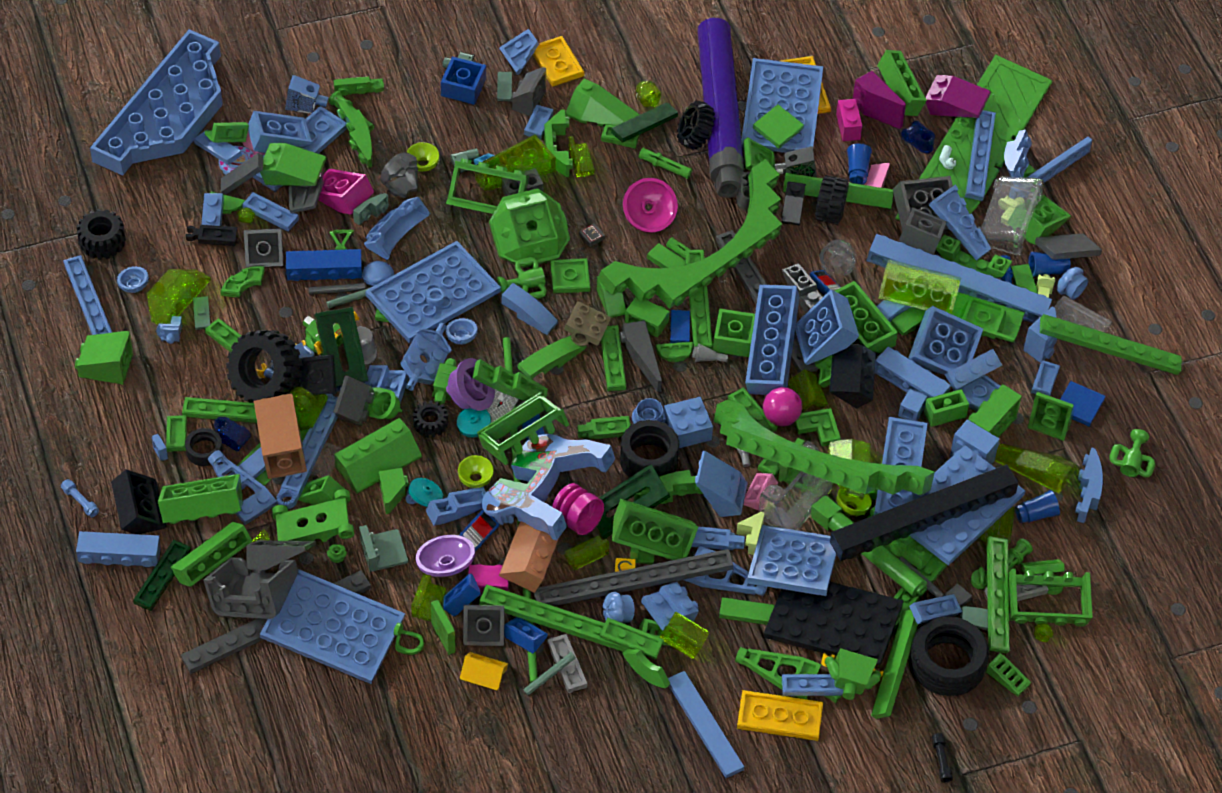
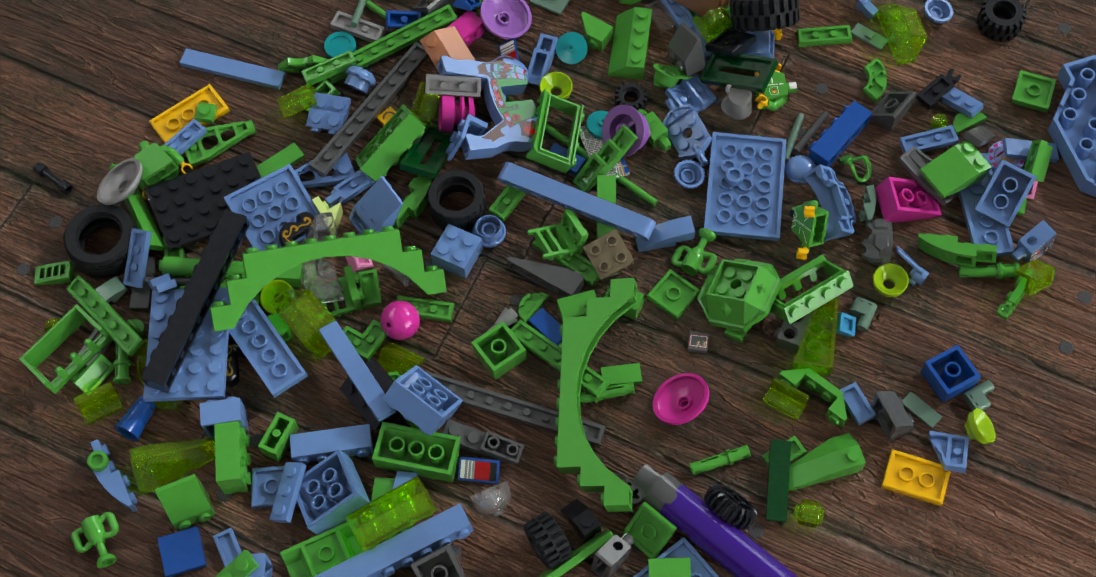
camera: 140 degrees right, 10 degrees up
(155, 178) = (1033, 91): none -> bright green plate
(333, 78) = (1038, 276): none -> clear neon green panel
(398, 146) = (917, 274): none -> medium blue plant
(431, 223) = (809, 225): none -> bright green torso
(486, 45) = (980, 427): none -> lime piece
(569, 370) = (577, 200): none -> medium blue beam
(576, 519) = (453, 85): none -> light grey plate
(597, 359) = (569, 232): none -> bright green plate
(598, 662) = (339, 43): none -> teal piece
(599, 476) = (470, 125): none -> medium blue bracket
(766, 696) = (205, 112): none -> bright green plate
(772, 338) = (461, 364): medium blue brick -> none
(795, 528) = (295, 230): none -> black animal
(852, 387) = (356, 370): none -> medium blue tile
(910, 671) = (120, 182): none -> light grey dish
(912, 405) = (308, 418): medium blue brick -> none
(936, 562) = (162, 283): none -> medium blue slope
(1055, 548) = (98, 403): none -> clear neon green panel
(1092, 491) = (98, 461): none -> bright green tile

